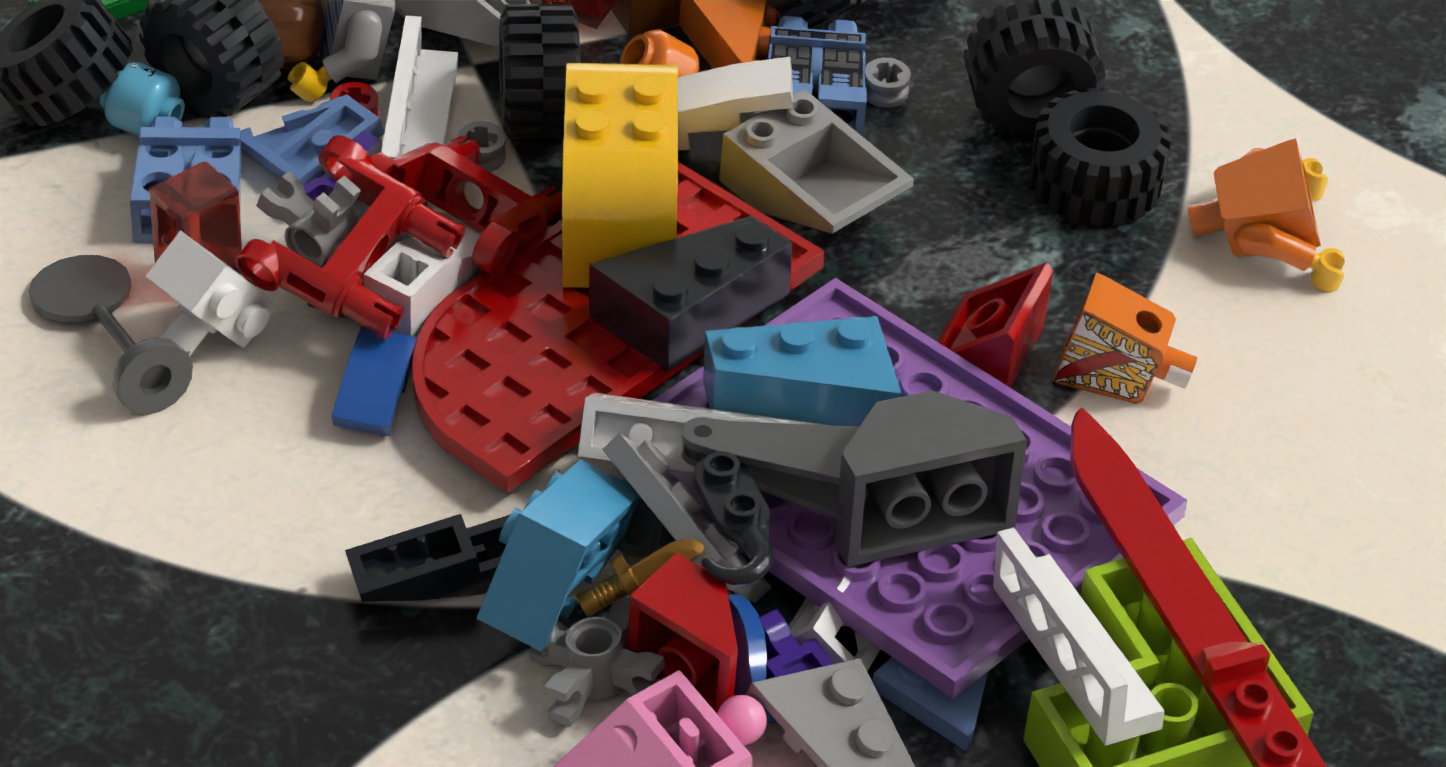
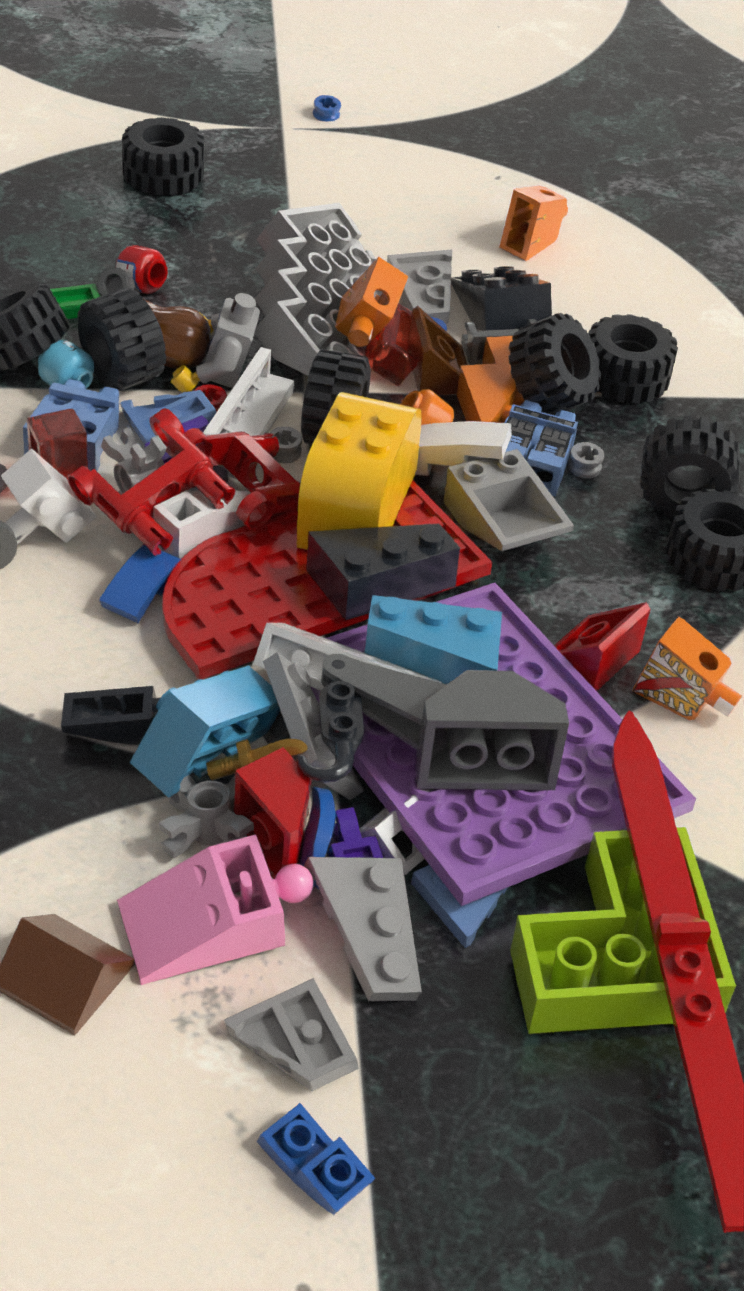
camera: 15 degrees right, 0 degrees up
(1073, 643) = (563, 887): white fence -> none

